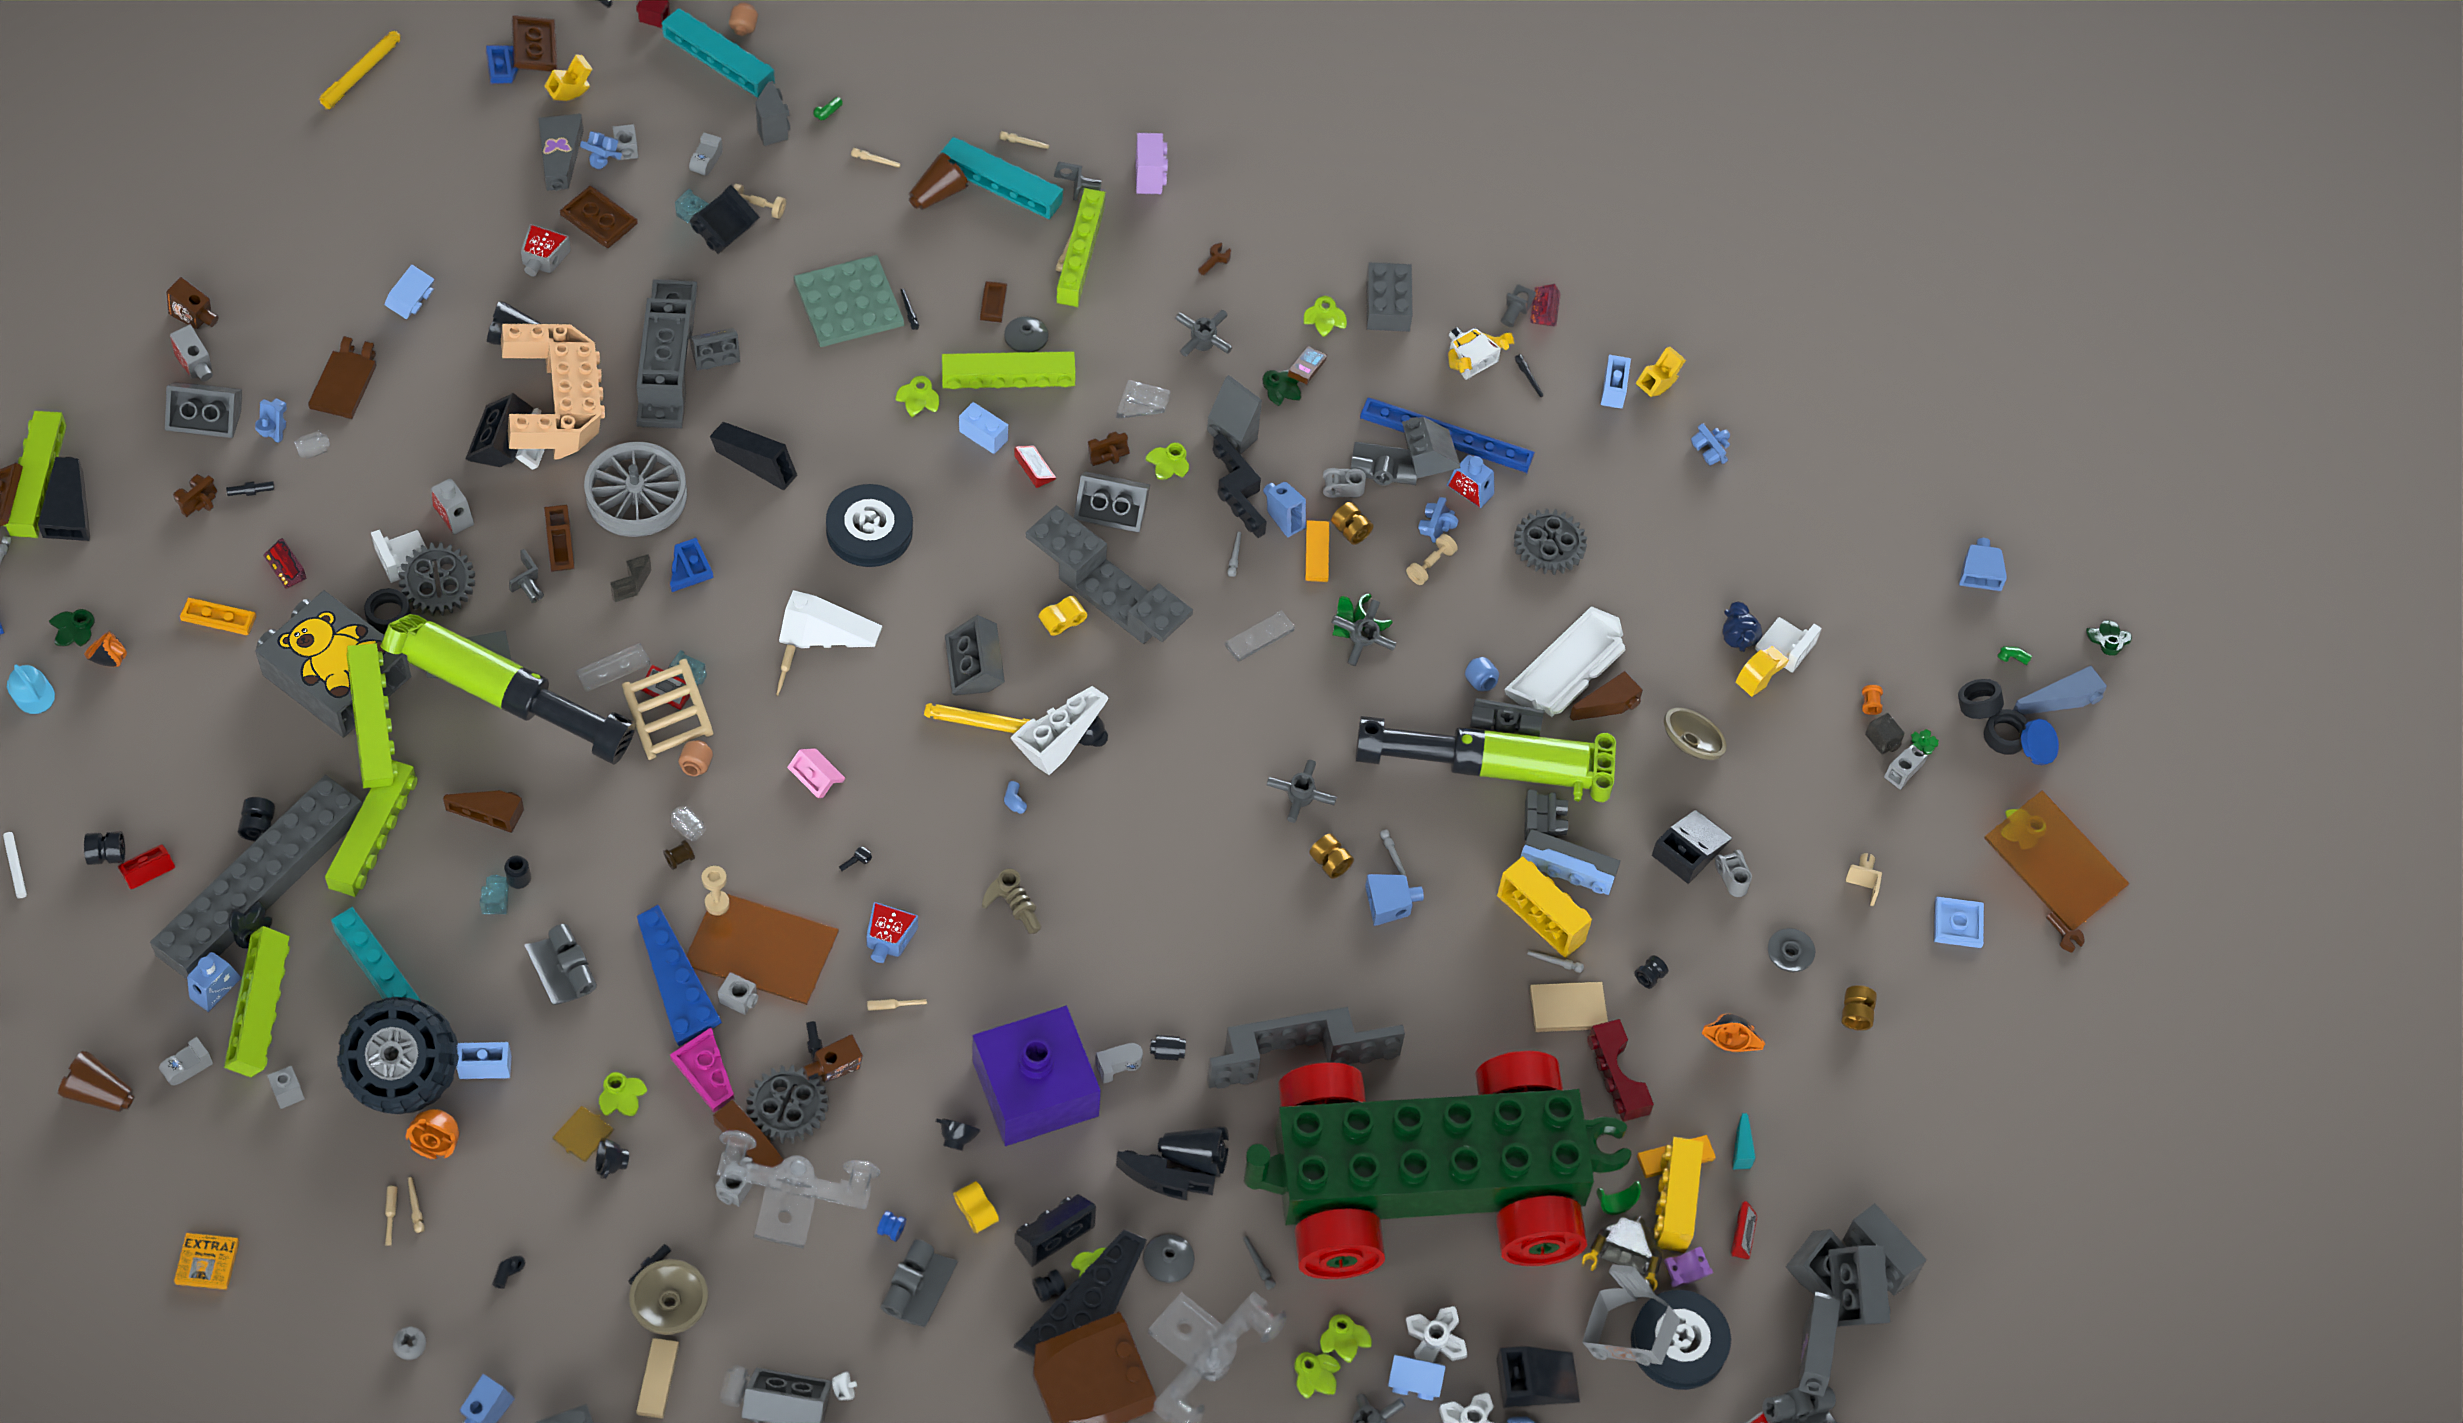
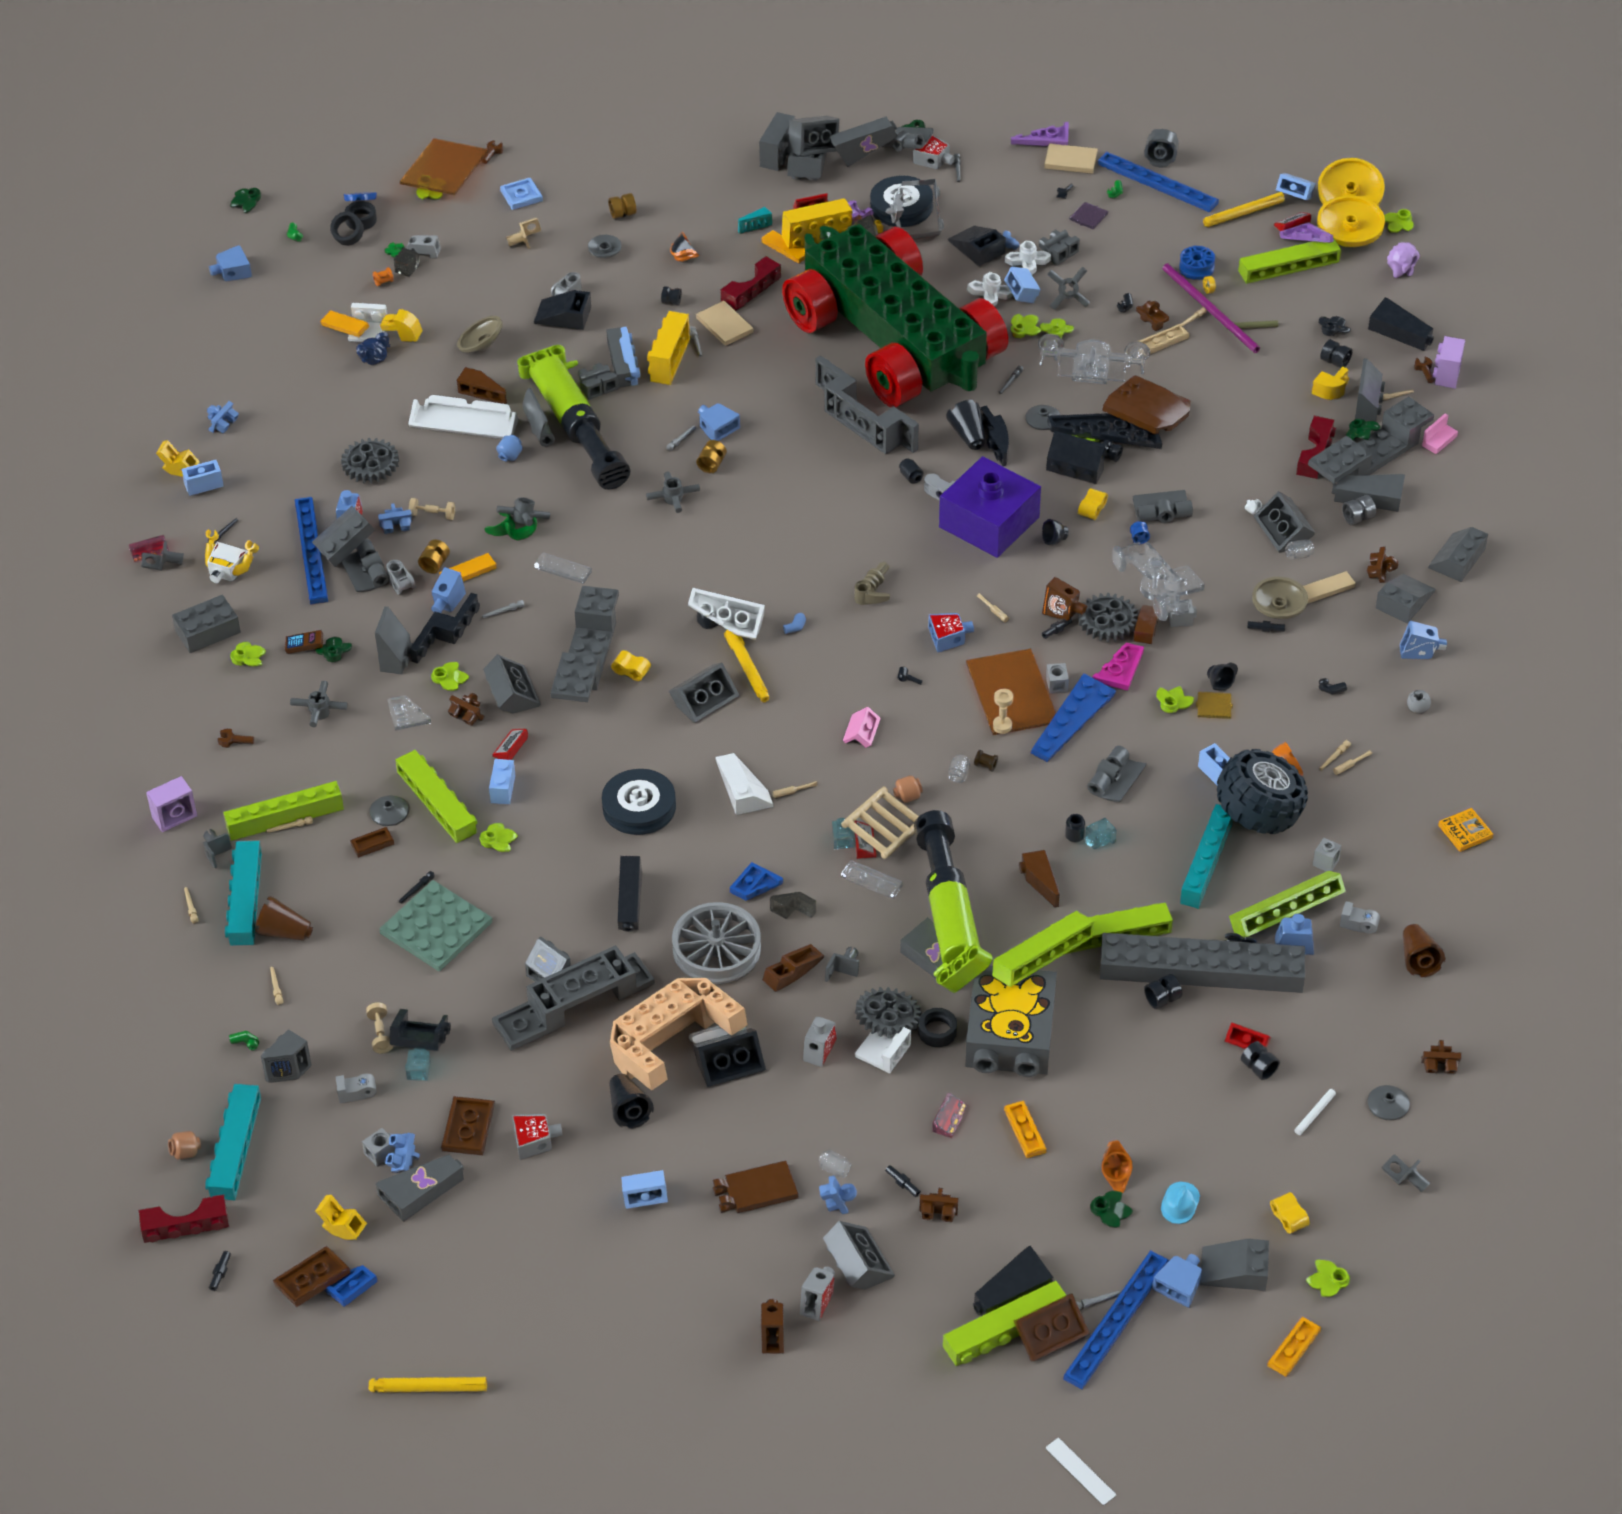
camera: 115 degrees left, 10 degrees down
(1795, 623) = (344, 323): none -> light orange tile
(2068, 693) = (308, 199): sand blue slope -> none

